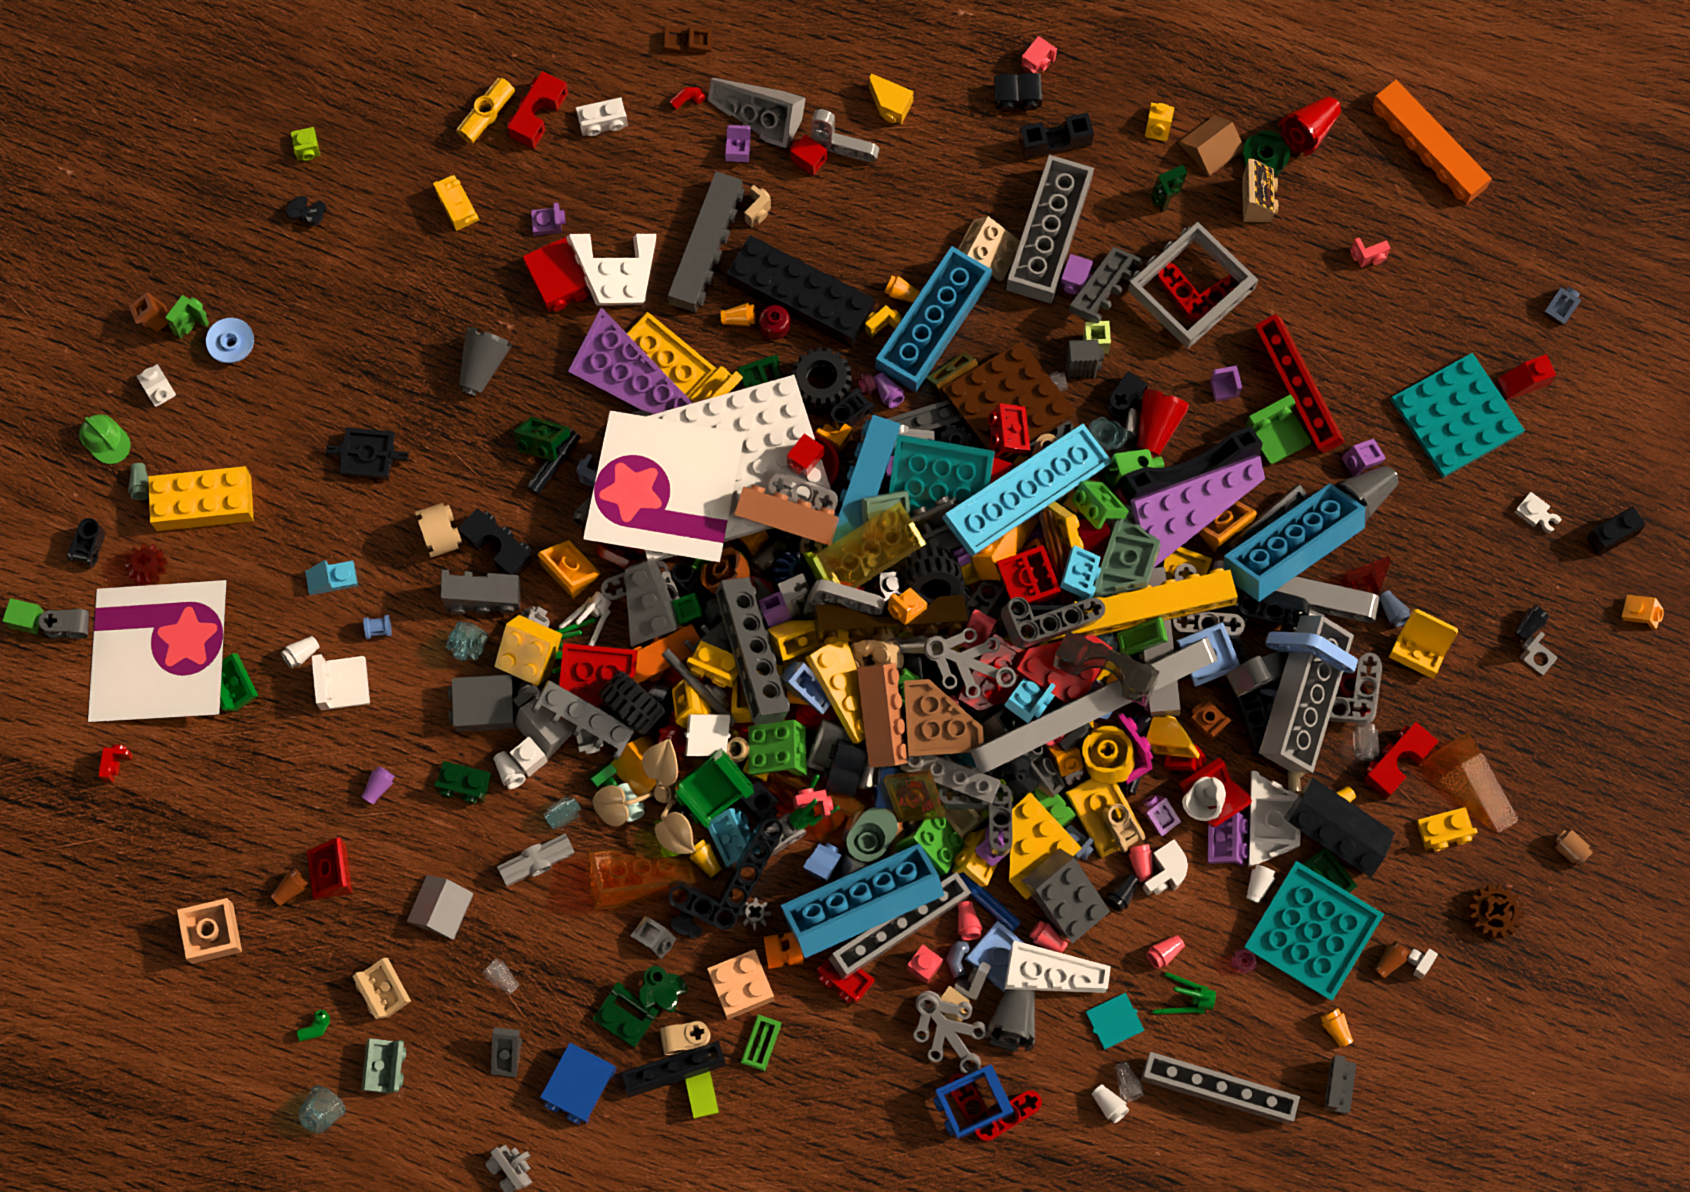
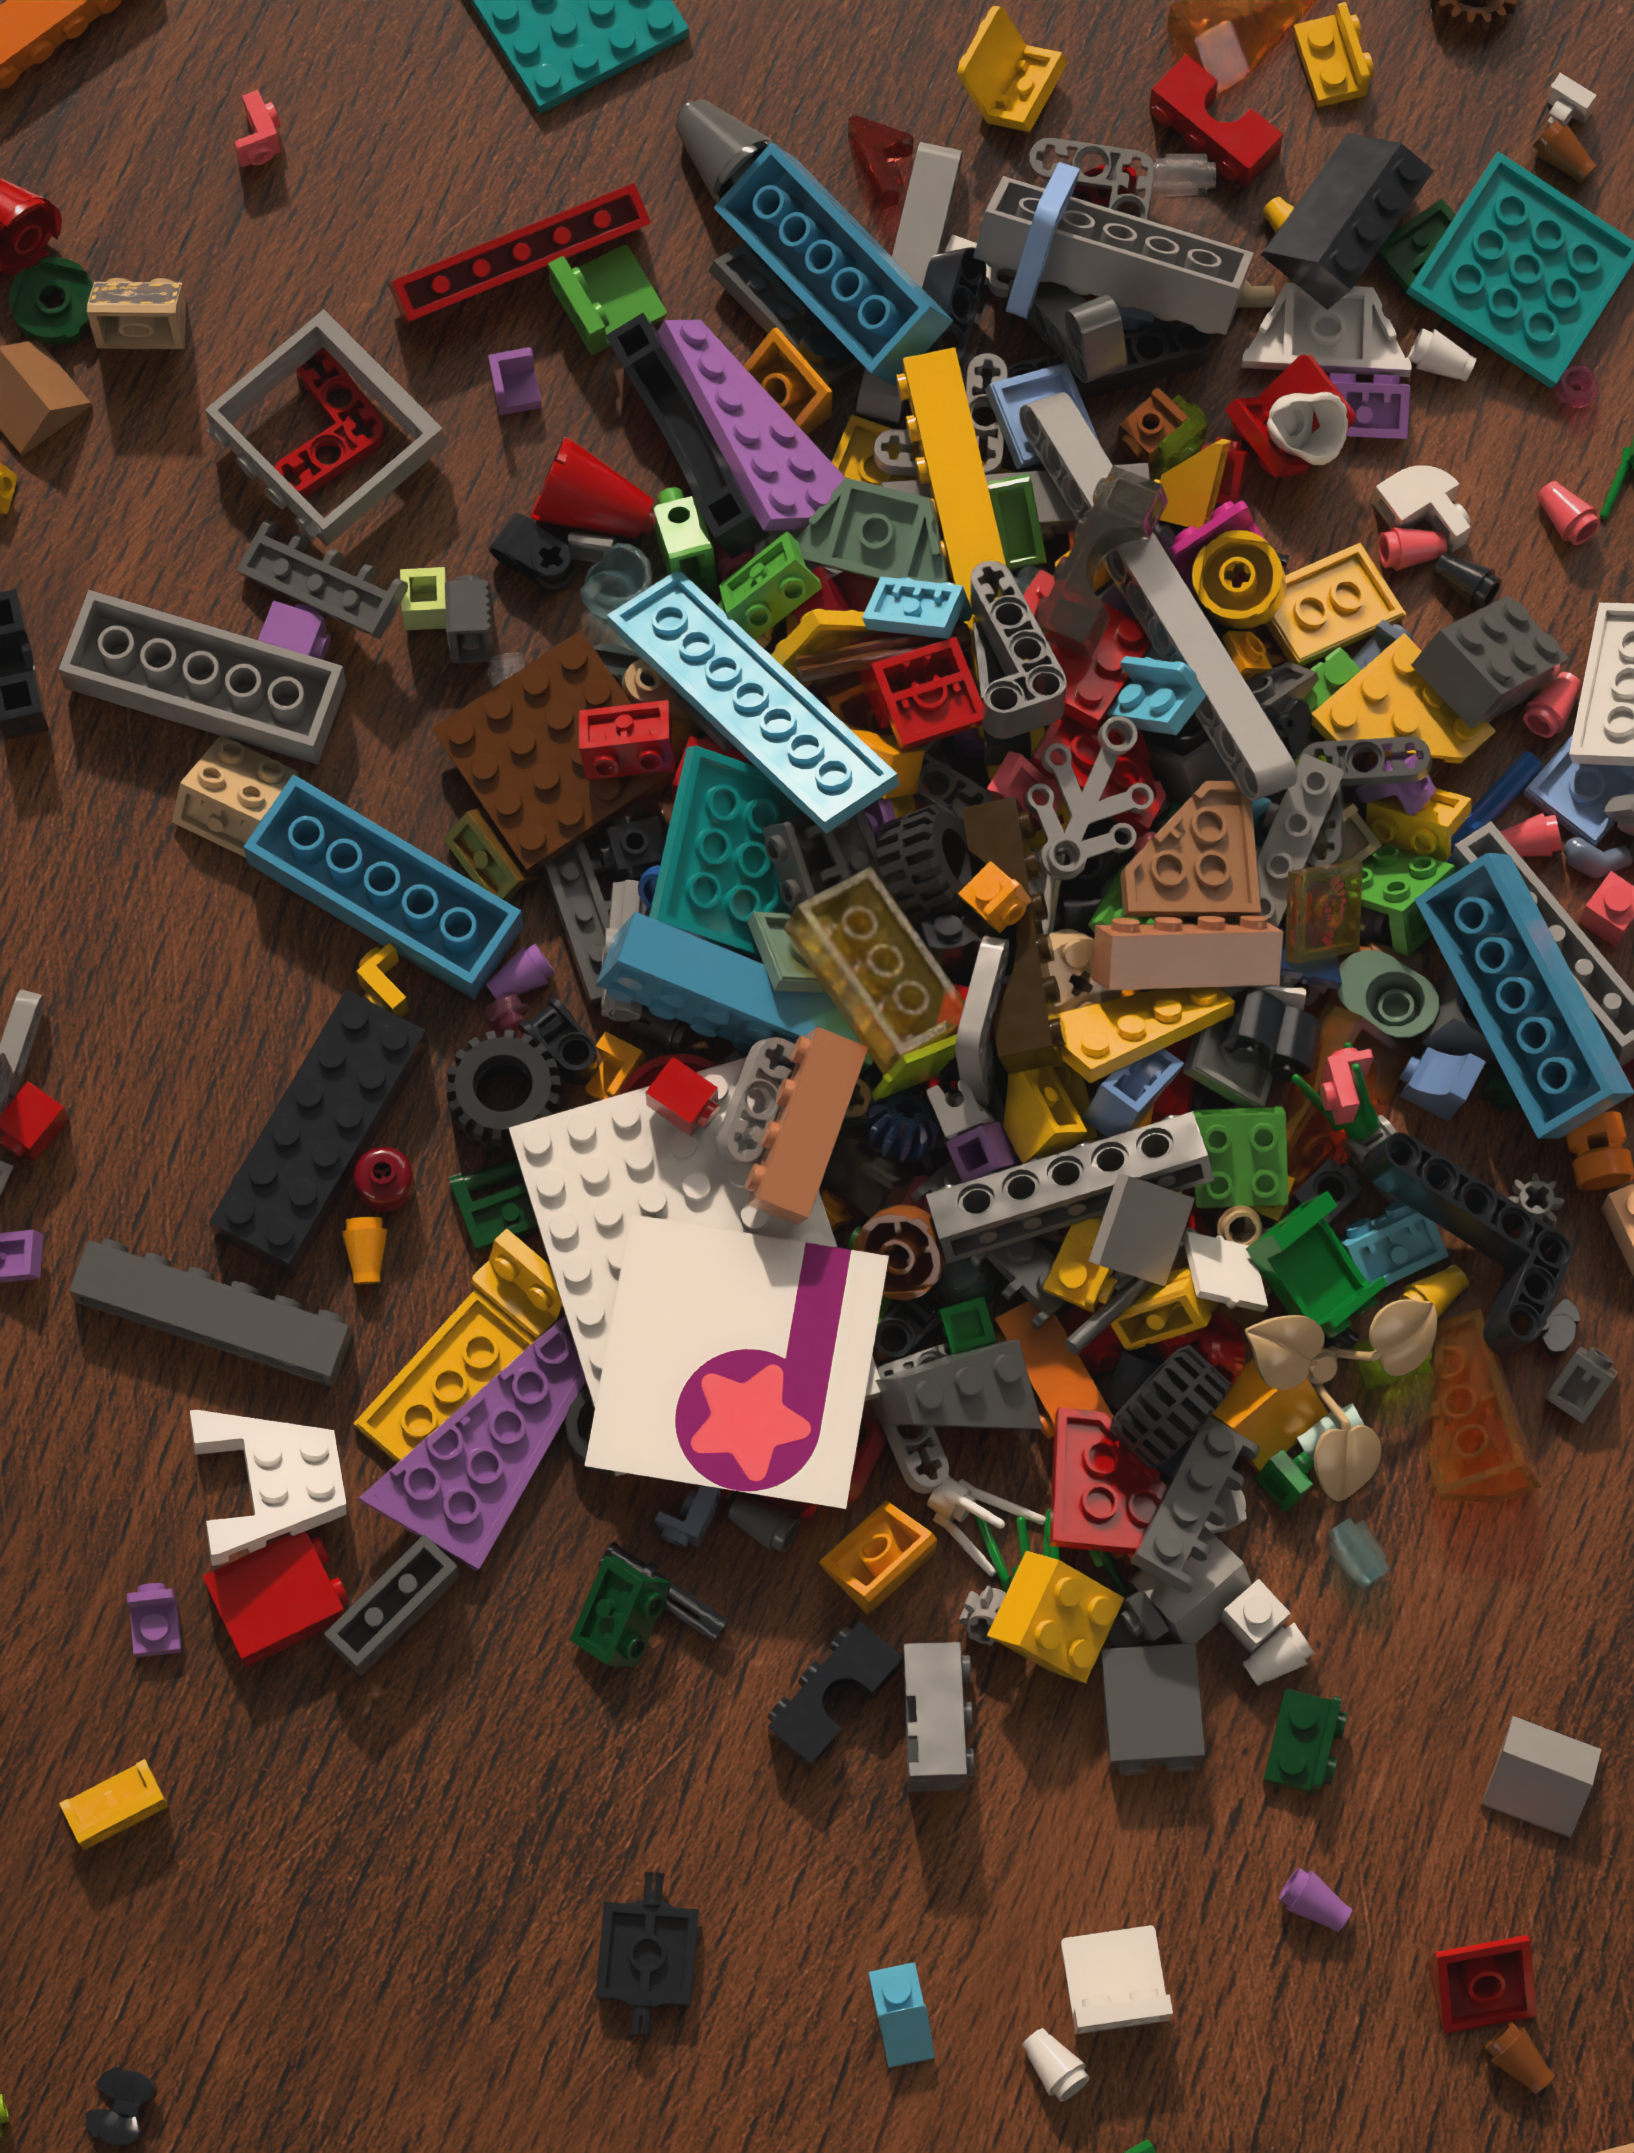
camera: 90 degrees left, 0 degrees up
(377, 627) = (1003, 1916): medium blue bush -> none
(438, 530) = (812, 1800): tan brick -> none
(466, 641) = (1033, 1740): clear light blue brick -> none
(480, 359) = (456, 1735): dark grey cone -> none
(536, 860) = (1449, 1598): light grey piece -> none
(548, 327) = (392, 1605): none -> dark grey brick
(724, 684) = (1141, 1229): none -> light grey tile
(759, 209) = (149, 1215): tan bracket -> none
(901, 290) = (317, 951): light orange cone -> none
(1125, 830) = (1359, 567): tan piece -> none
(1159, 814) = (1322, 516): medium lavender bracket -> none
(1168, 186) = (131, 474): dark green bracket -> none
(1202, 738) = (1185, 439): none -> clear neon green bracket
(1363, 456) = (655, 159): medium lavender bracket -> none
(1394, 609) = (941, 119): sand blue cone -> none

